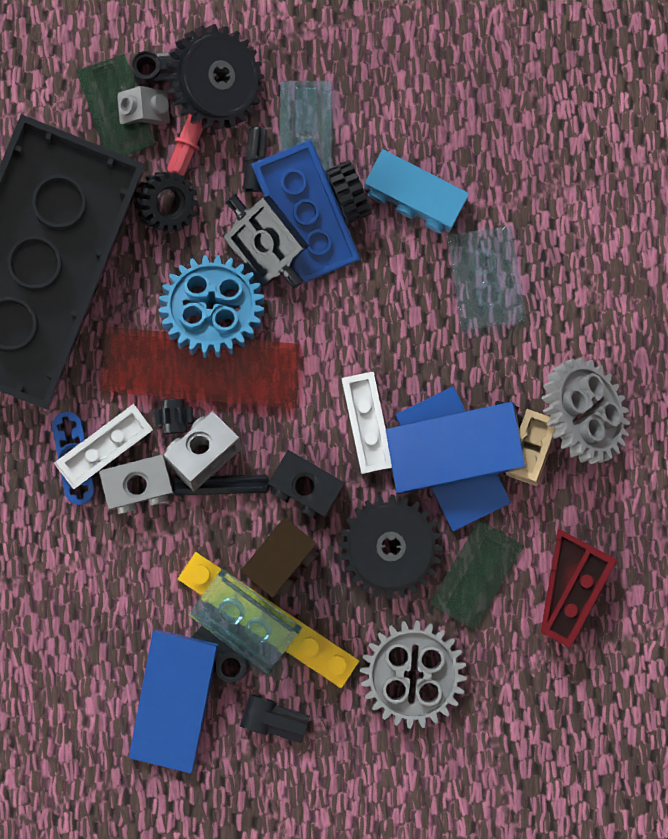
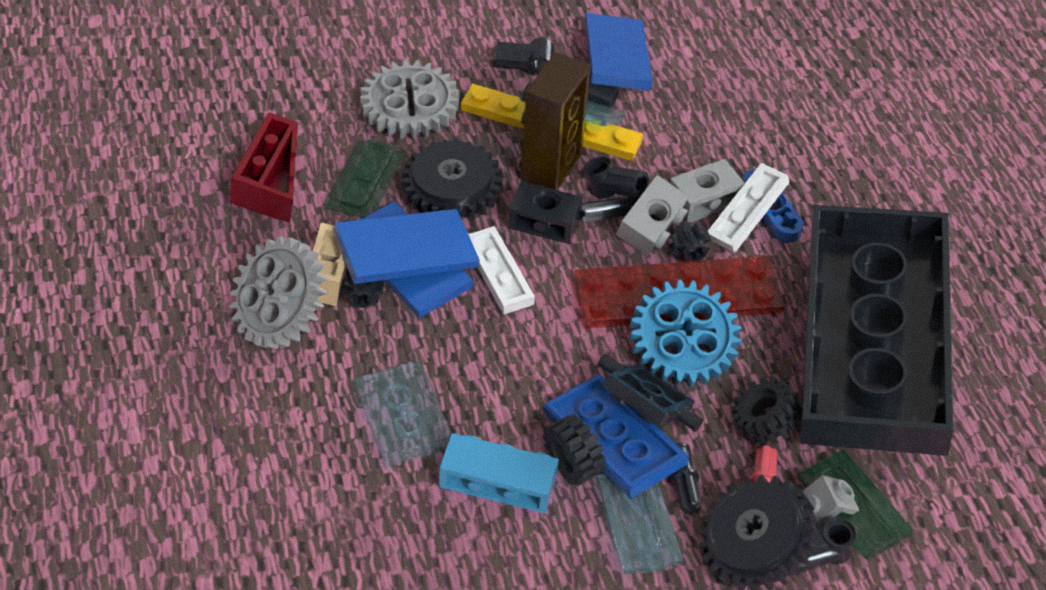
camera: 165 degrees right, 35 degrees down
(226, 504) = (609, 180): none -> black piece

